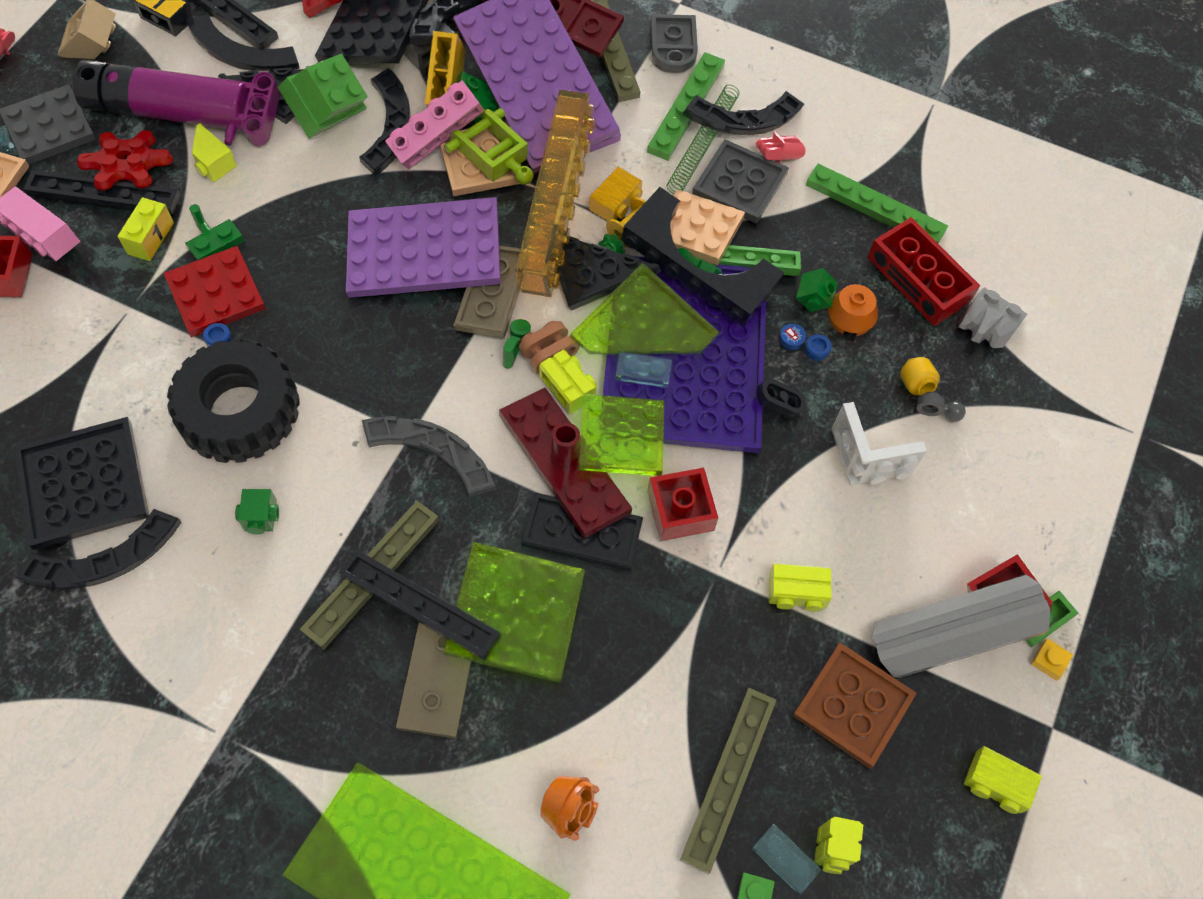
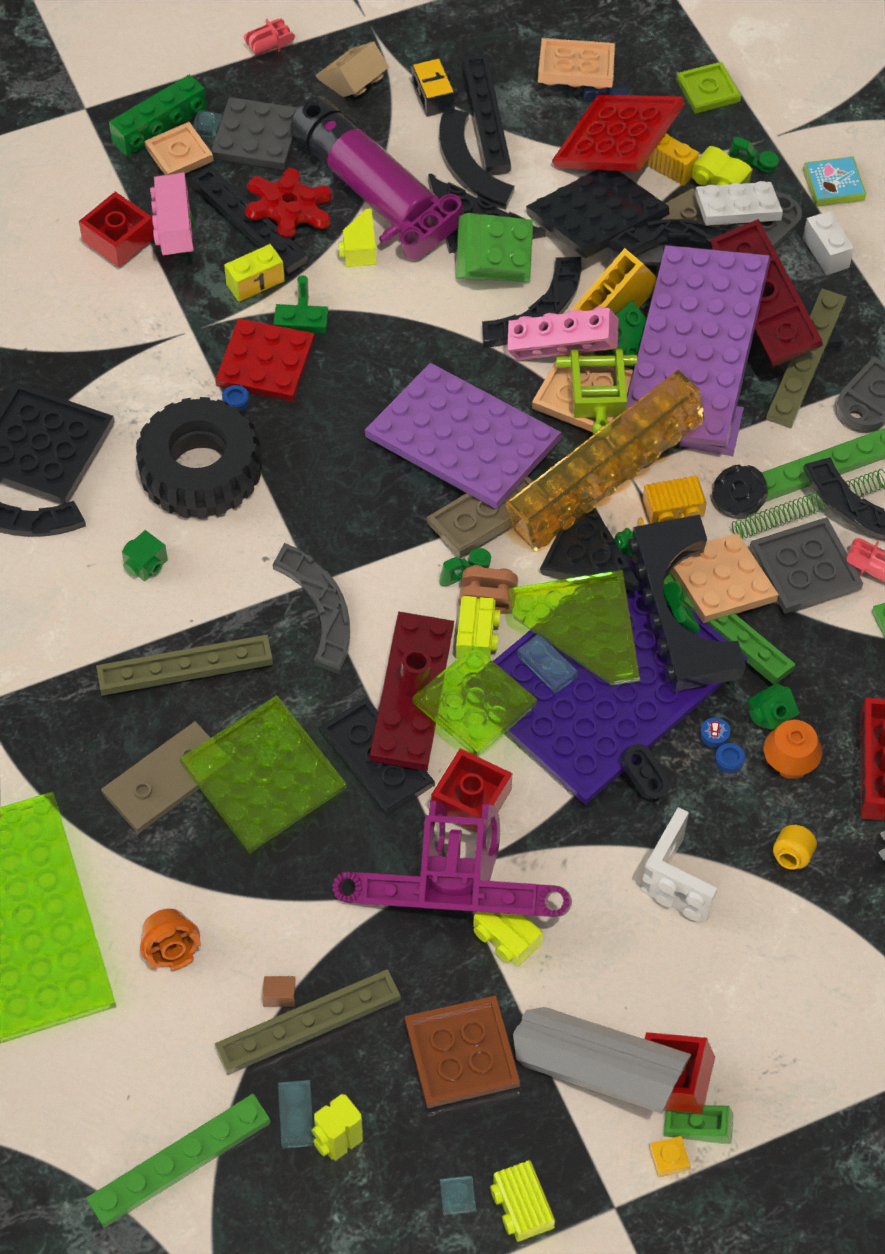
camera: 45 degrees right, 5 degrees down
(421, 605) = (192, 710): black plate -> none
(652, 158) = (740, 490): none -> black tile
(683, 772) = (279, 991): none -> nougat slope
(739, 581) = (453, 880): none -> magenta piece
(933, 405) = (781, 879): dark grey plate -> none
(952, 816) = (457, 1195): none -> clear light blue plate

